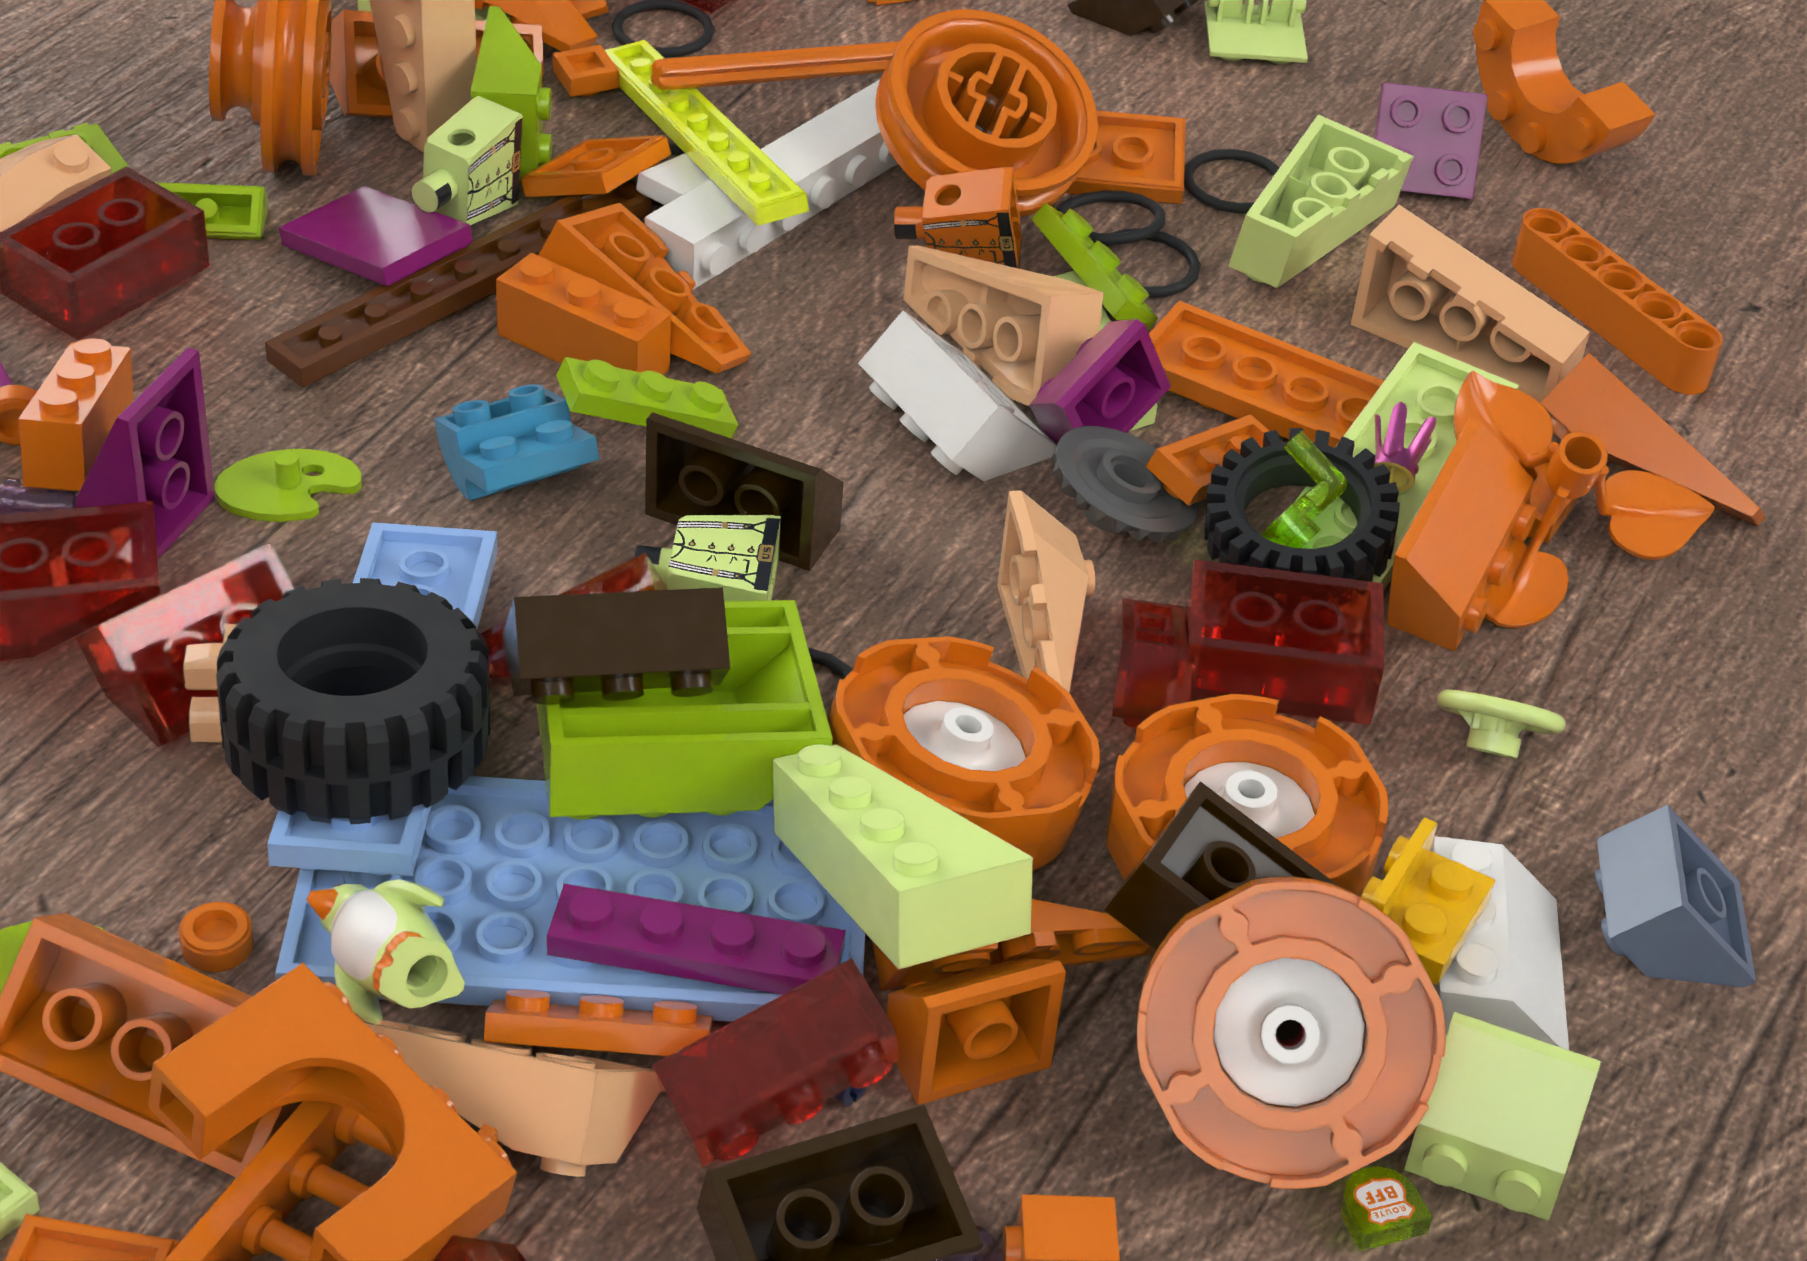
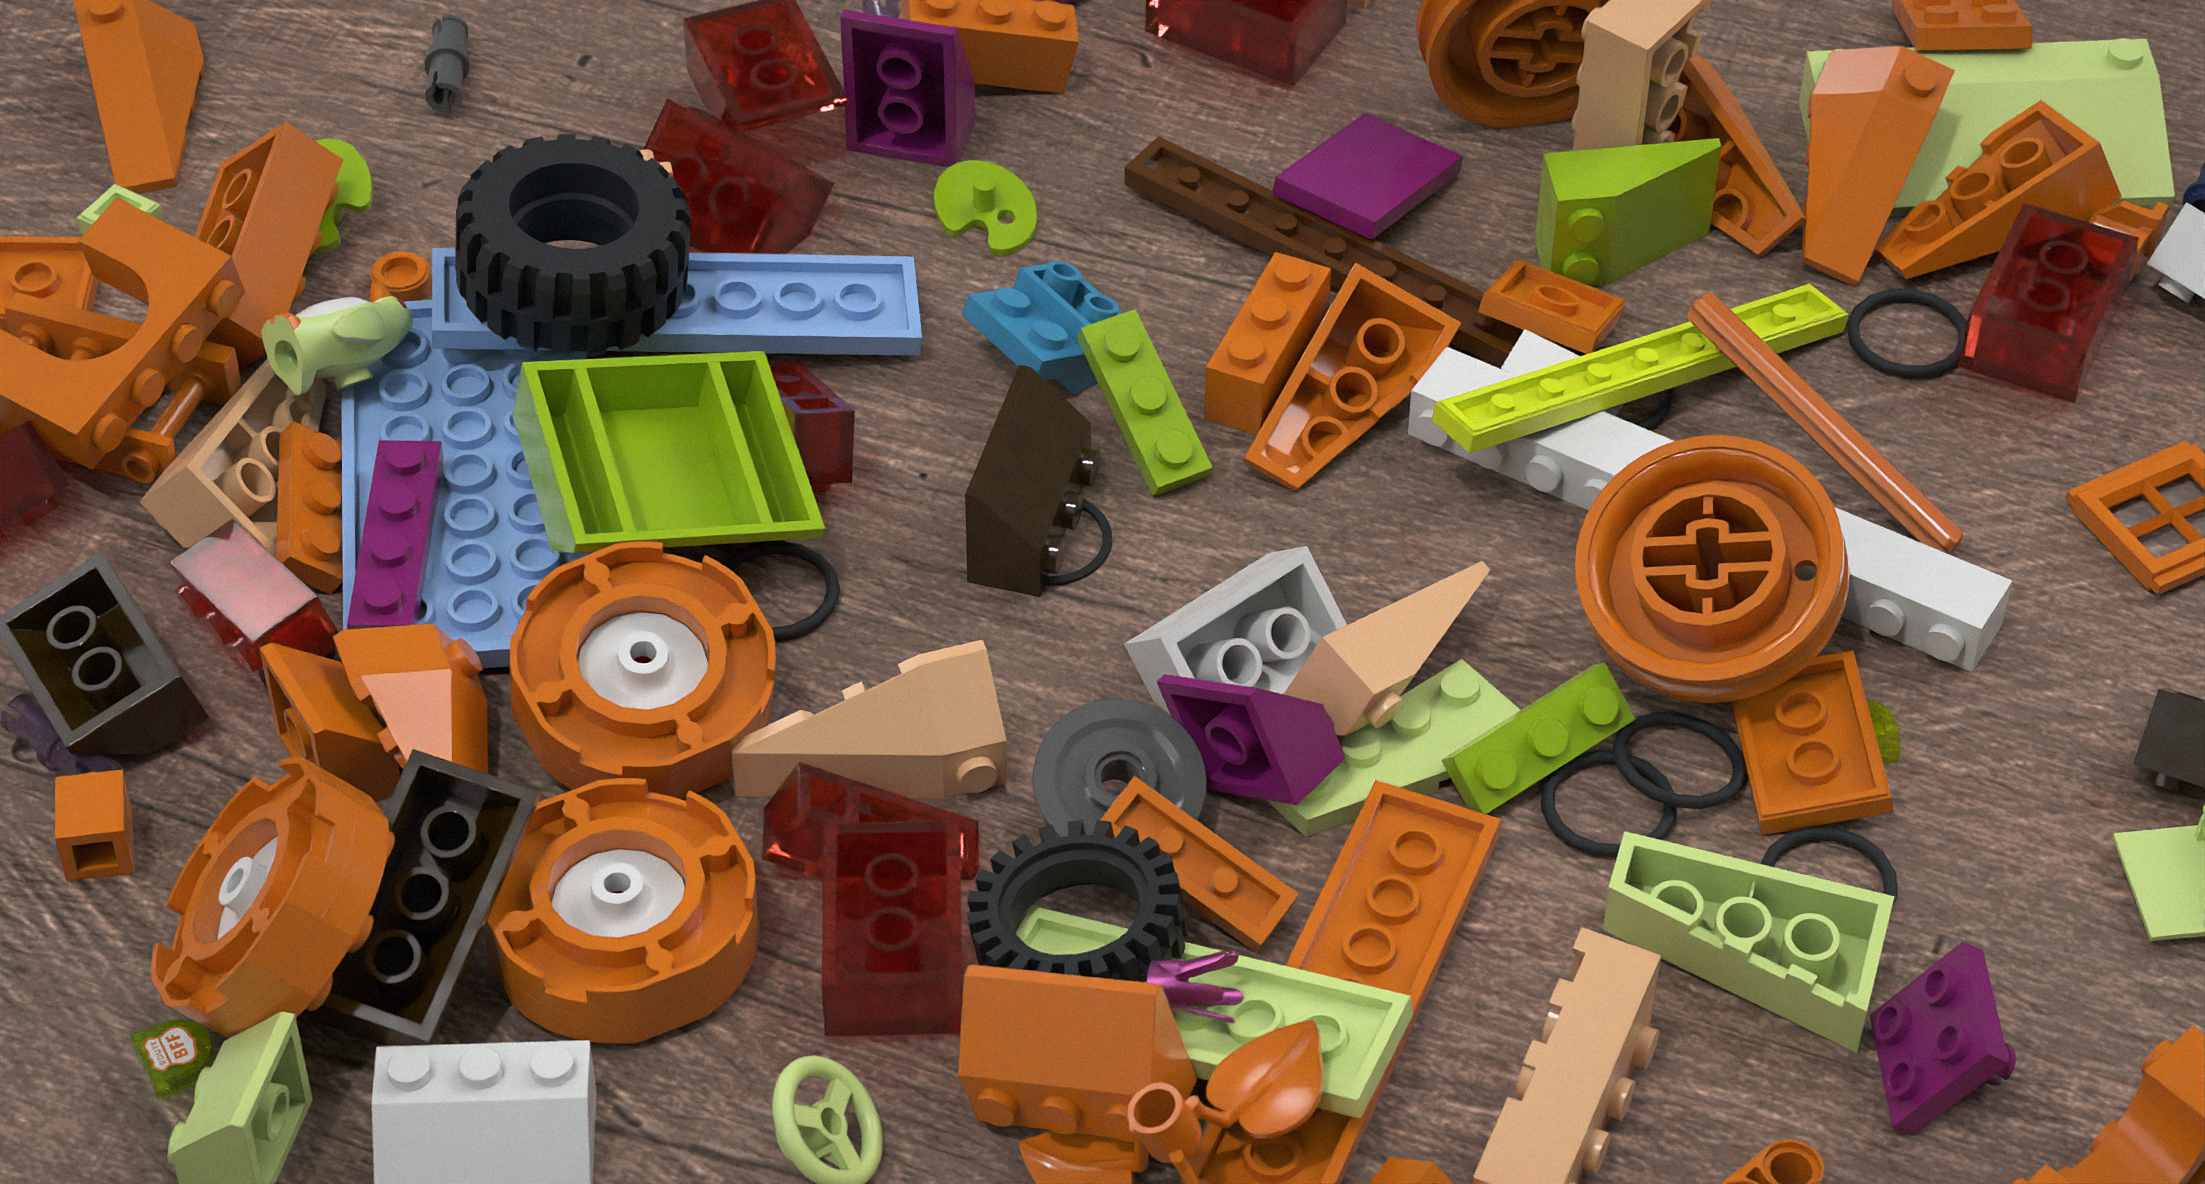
camera: 85 degrees right, 5 degrees up
(228, 209) = (1382, 67): lime slope -> none
(472, 163) = (1478, 204): yellowish green torso -> none
(585, 71) = (1760, 273): orange plate -> none
(617, 644) = (650, 378): dark brown slope -> none
(719, 553) = (909, 502): yellowish green torso -> none
(899, 860) = (427, 601): yellowish green wedge -> none
(967, 216) = (1546, 594): orange torso -> none
(1296, 524) = (1061, 913): clear neon green plate -> none
(1429, 898) = (448, 999): yellow bracket -> none

